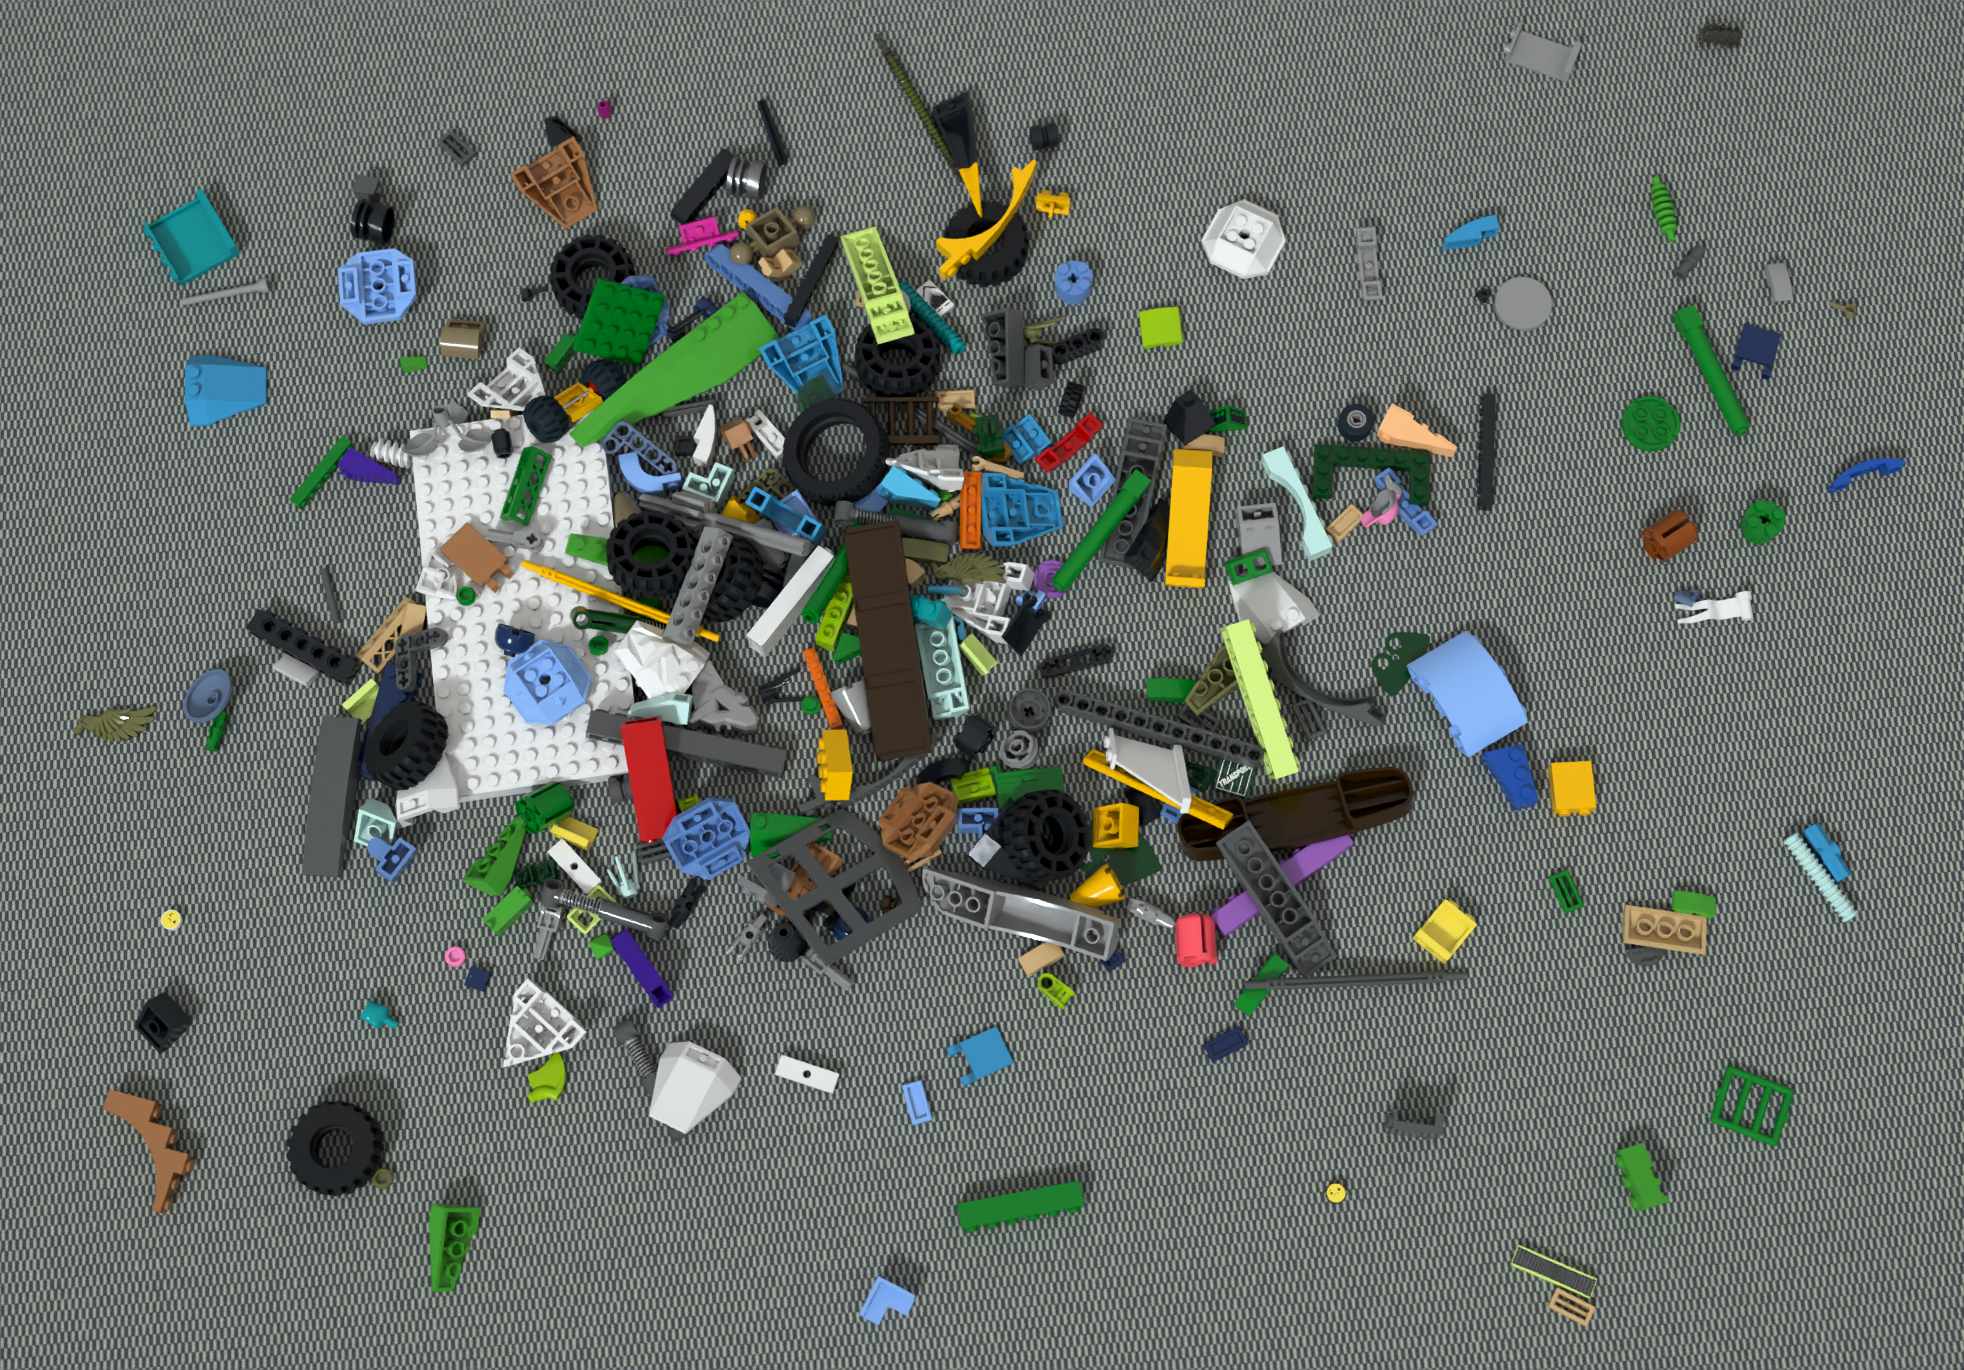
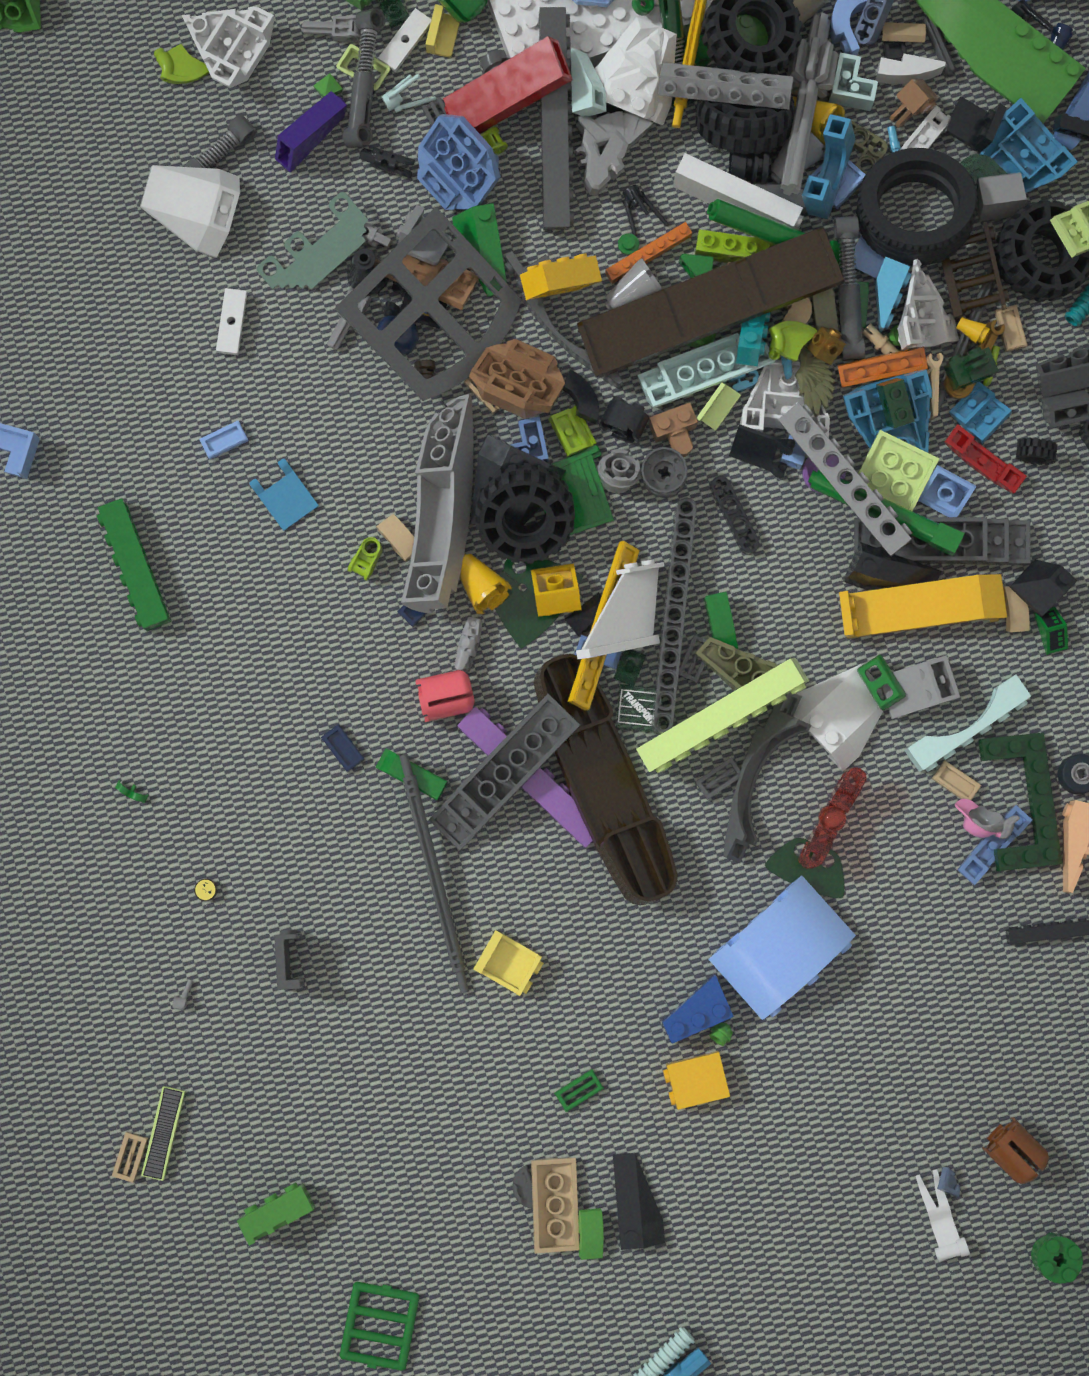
camera: 75 degrees right, 10 degrees up
(672, 433) = (904, 32): none -> tan tile
(763, 976) = (322, 257): none -> sand green piece
(770, 391) = (973, 124): none -> black bracket
(770, 462) = (894, 143): none -> medium azure piece
(838, 381) = (1000, 196): none -> light grey slope
(932, 581) = (788, 339): none -> lime arm
(942, 551) = (826, 345): none -> pearl gold brick
(955, 427) = (973, 330): none -> yellow cone
(989, 696) = (675, 426): none -> medium nougat brick
(1007, 504) = (895, 402): none -> dark green brick
(1010, 592) = (791, 422): none -> light grey brick
(1065, 517) = (897, 469): none -> yellowish green plate
(1234, 1248) = (130, 793): none -> green piece
(1377, 640) = (832, 818): none -> clear red piece
(1436, 1235) = (180, 1003): none -> light grey hand
(1535, 759) = (721, 1033): none -> bright green plate
(1678, 861) = (637, 1212): none -> black wedge

